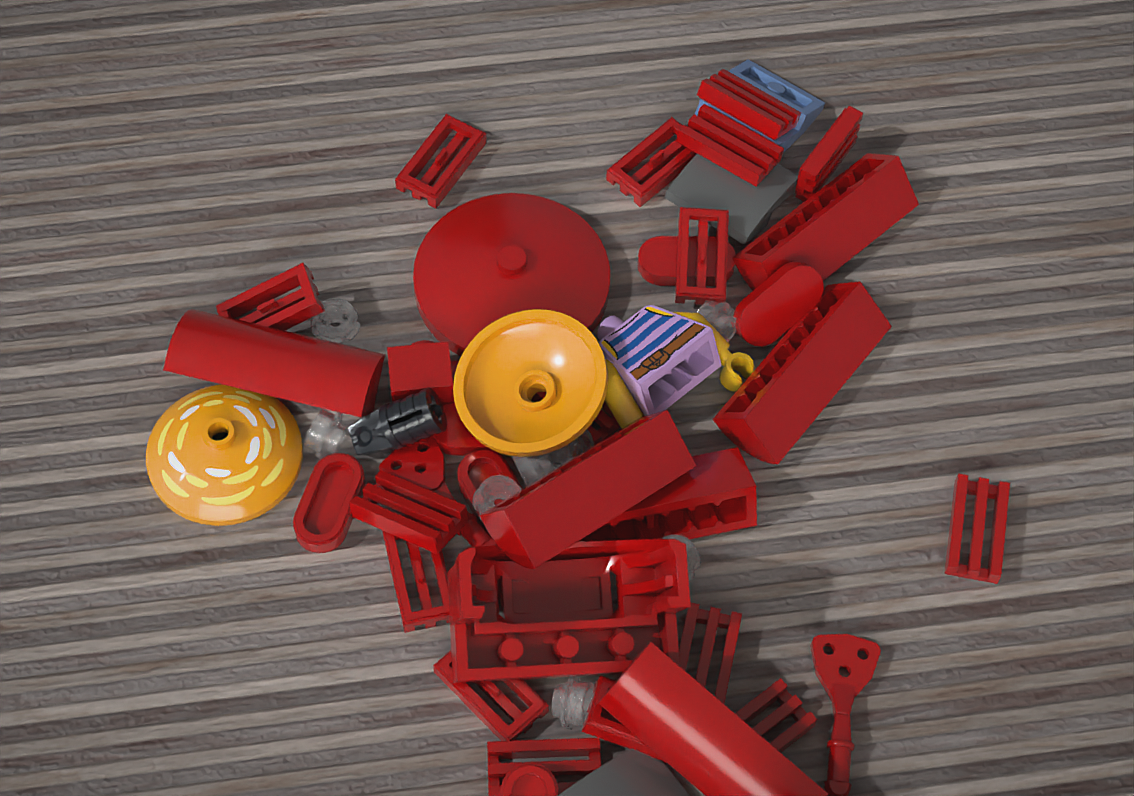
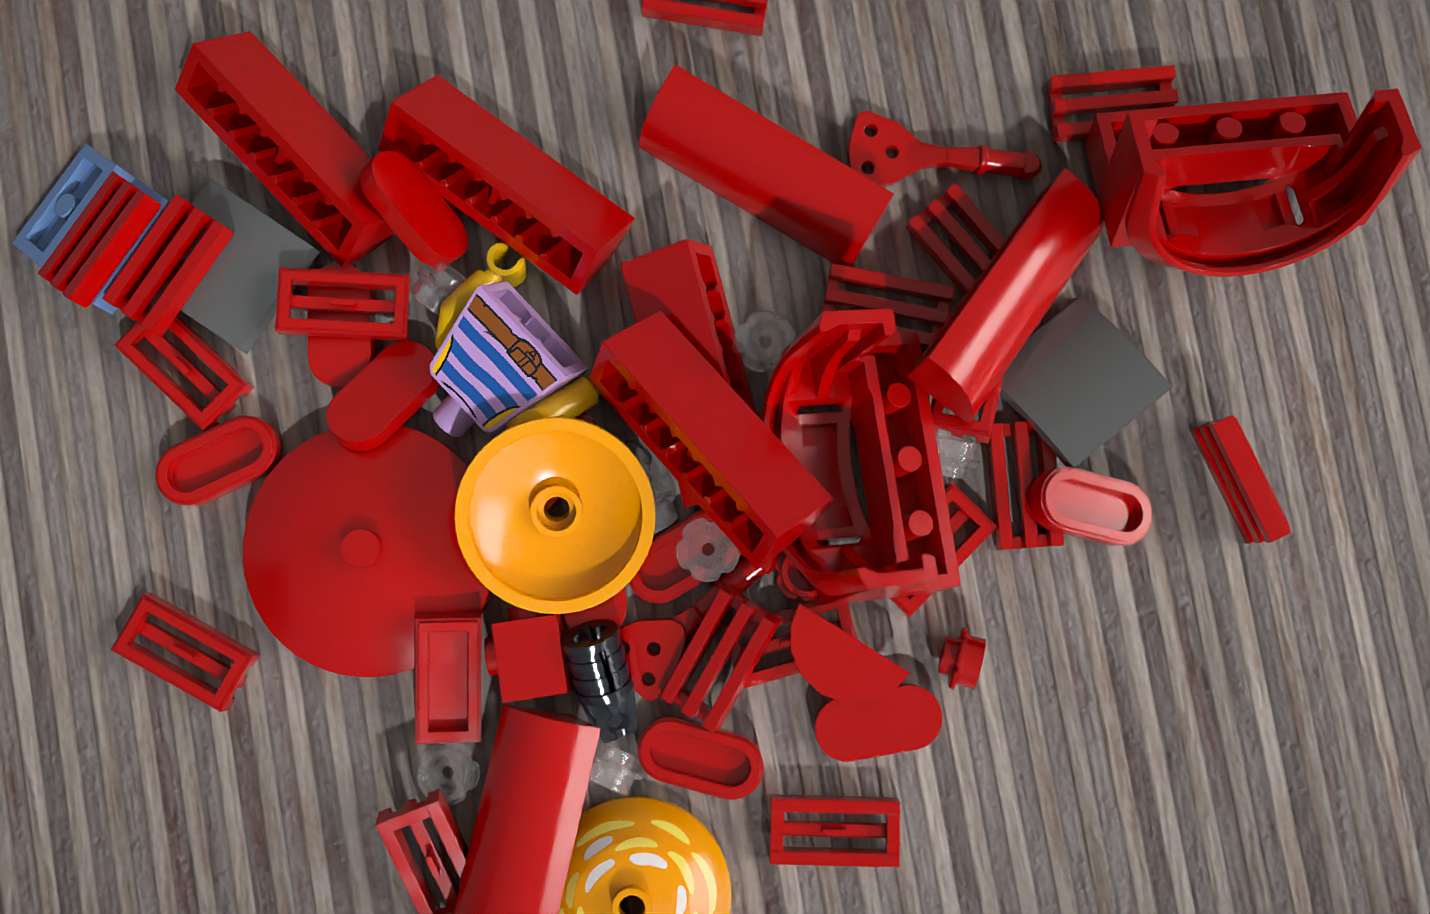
camera: 90 degrees left, 25 degrees up
(254, 643) = (832, 855): none -> red tile
(345, 638) = (887, 726): none -> red tile
(393, 706) = (962, 659): none -> red plate
(400, 597) = (838, 662): none -> red tile
(408, 319) = (448, 677): none -> red tile
(583, 182) = (219, 461): none -> red tile
(628, 278) = (382, 396): none -> red tile
(822, 564) = (762, 168): none -> red brick
(828, 153) = (176, 138): red tile -> none

